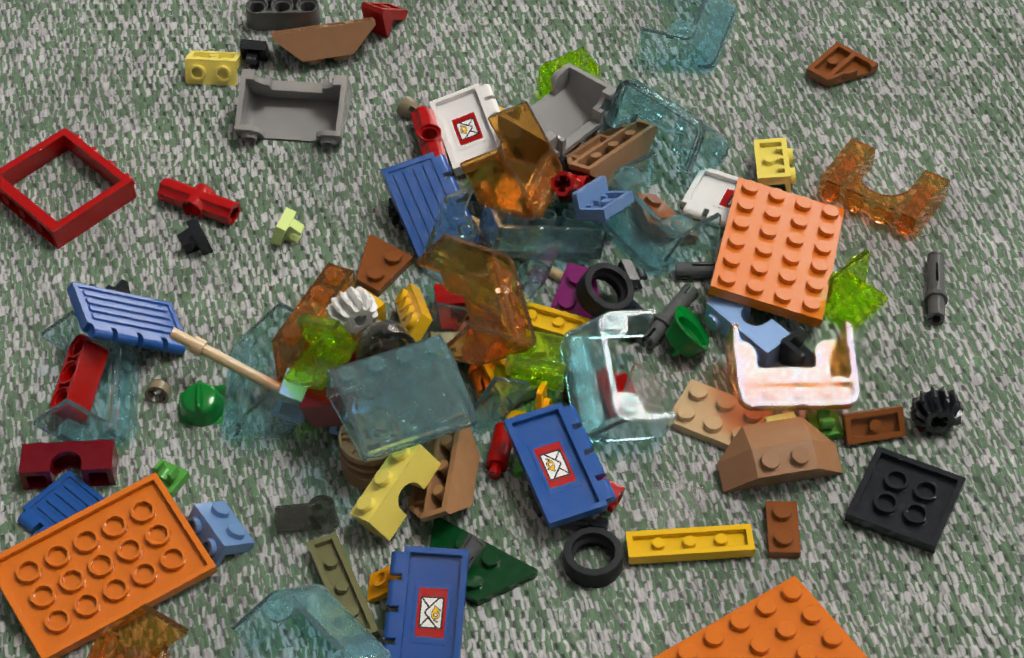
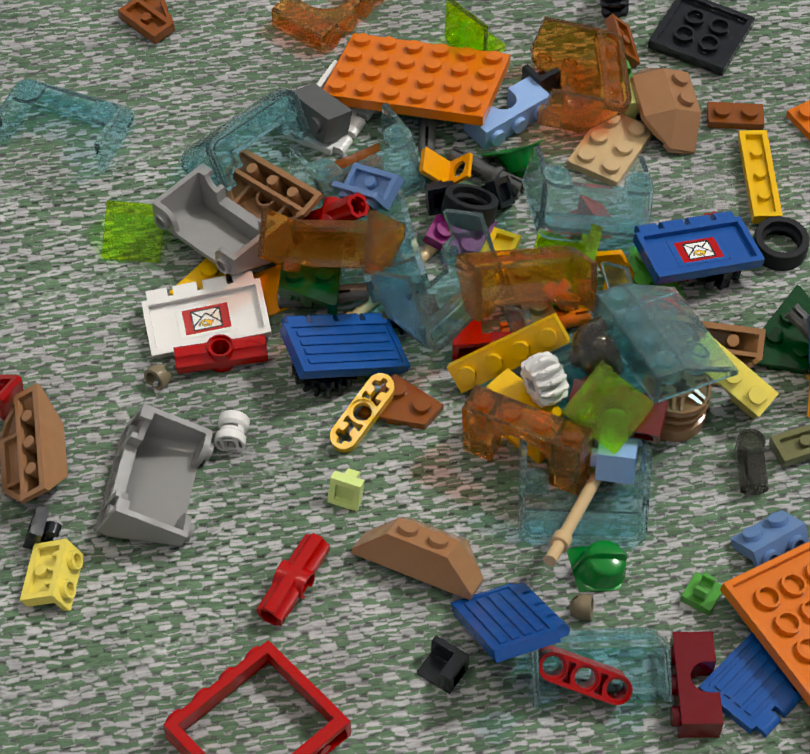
camera: 90 degrees left, 5 degrees up
(194, 239) = (356, 576): black tile -> none
(217, 283) = (423, 554): none -> medium nougat wedge
(347, 154) = (232, 428): none -> white wheel
(370, 240) = (343, 426): none -> yellow beam
(663, 274) = (438, 168): none -> light orange bracket
(713, 177) = (324, 113): none -> dark grey brick
(774, 162) = (291, 71): light yellow bracket -> none

